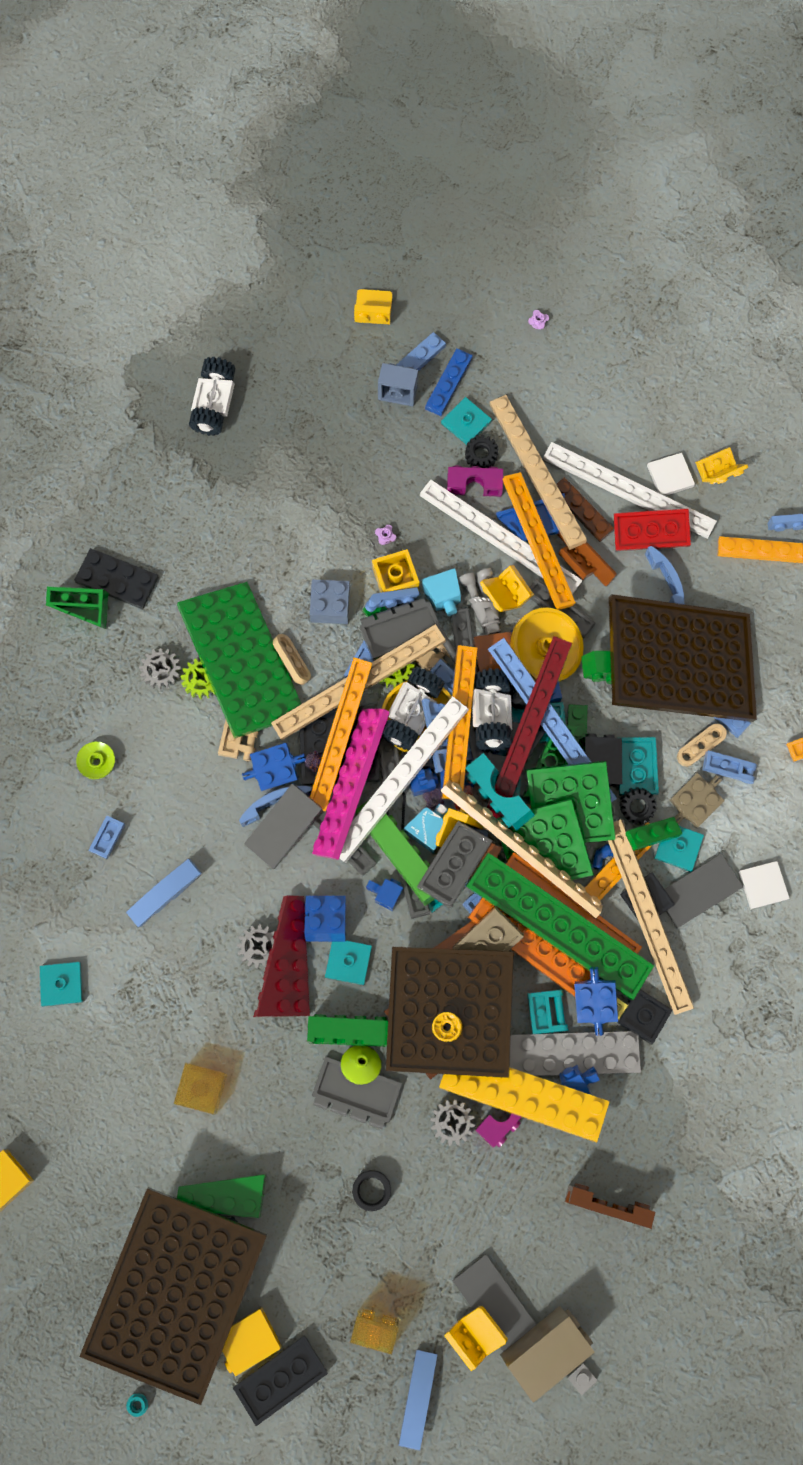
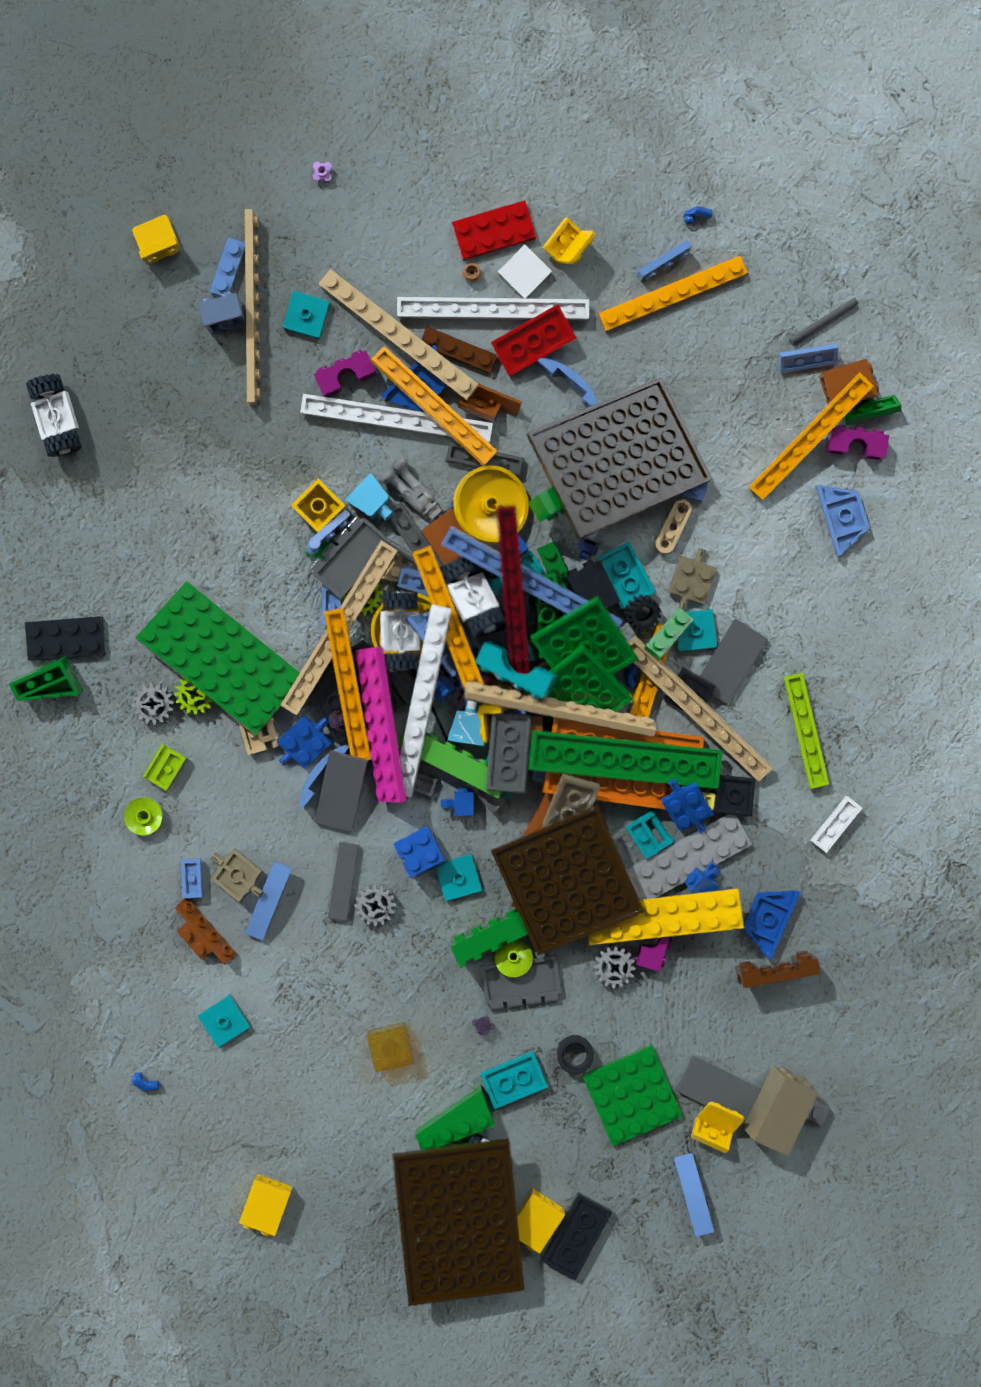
camera: 25 degrees left, 15 degrees up
(85, 892) = (201, 934): none -> dark orange bracket
(131, 1408) = (469, 1315): teal plate -> none
(139, 728) = (165, 767): none -> lime plate
(148, 854) = (237, 875): none -> dark tan plate
(240, 911) = (343, 881): none -> dark grey tile
(286, 972) = (409, 912): dark red wing -> none
(291, 659) = (266, 634): tan plate -> none
(298, 1114) = (483, 1025): none -> clear purple plate
(300, 1184) = (513, 1079): none -> teal plate
(329, 601) = (272, 562): sand blue brick -> none
(375, 1331) = (634, 1163): clear yellow brick -> none
(385, 539) = (284, 469): lavender plate -> none
(406, 1263) = (632, 1095): none -> green plate
(420, 400) = (252, 299): none -> tan plate
(441, 1020) = (572, 905): yellow wheel -> none
(448, 382) = (269, 282): blue plate -> none
(481, 443) = (334, 329): black tyre -> none
(507, 590) = (428, 469): yellow bracket -> none
(615, 724) = (587, 546): none -> dark blue tile
(623, 1153) = (769, 918): none -> blue wing
(625, 449) = (471, 267): none -> medium nougat plate
(660, 430) = (494, 230): none -> red plate
(729, 766) = (707, 535): medium blue plate -> none
(730, 1094) = (836, 824): none -> white plate
(741, 990) = (806, 730): none -> lime plate
(763, 885) = (784, 627): white tile -> none

